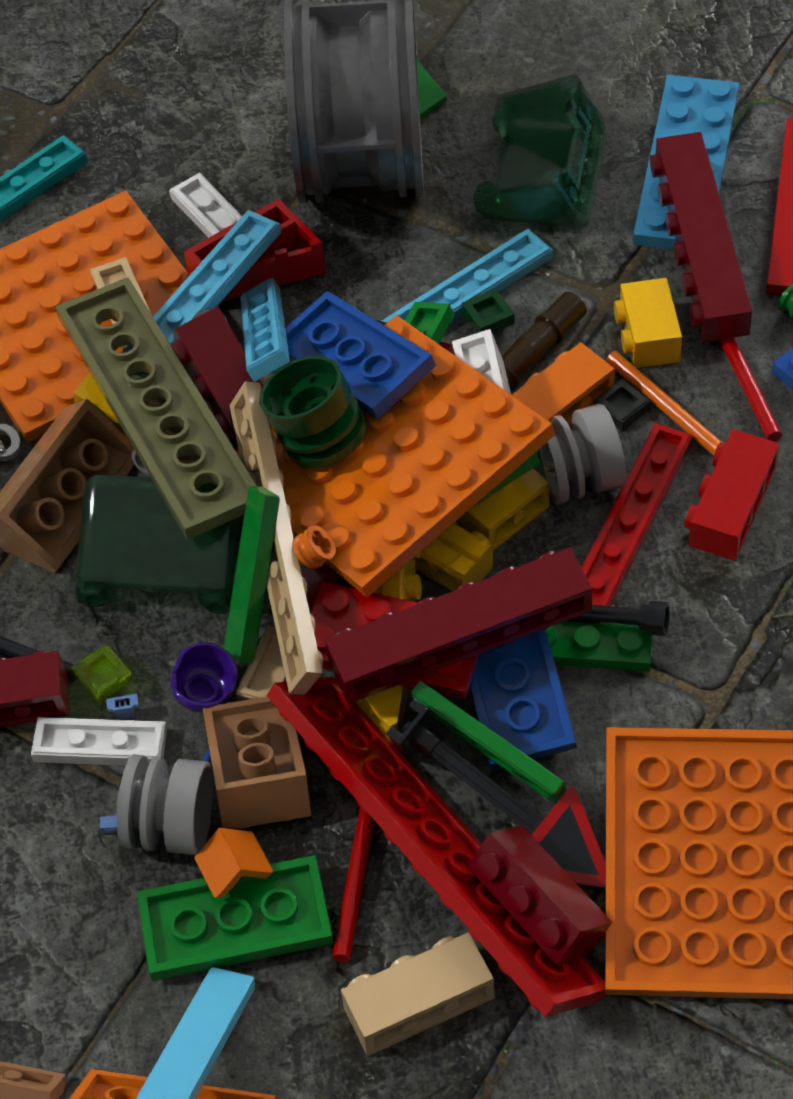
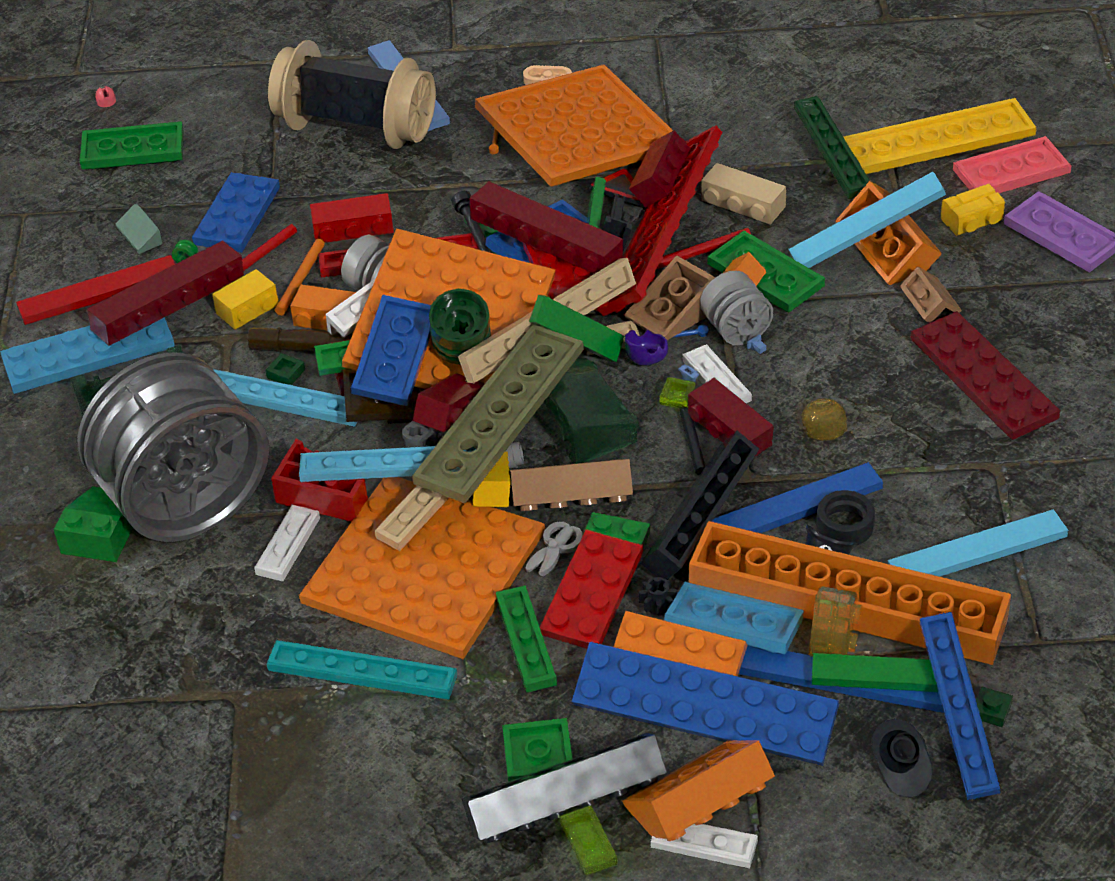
camera: 125 degrees left, 10 degrees down
(264, 329) = (401, 403): medium azure tile -> none
(314, 547) = (549, 291): orange bush -> none

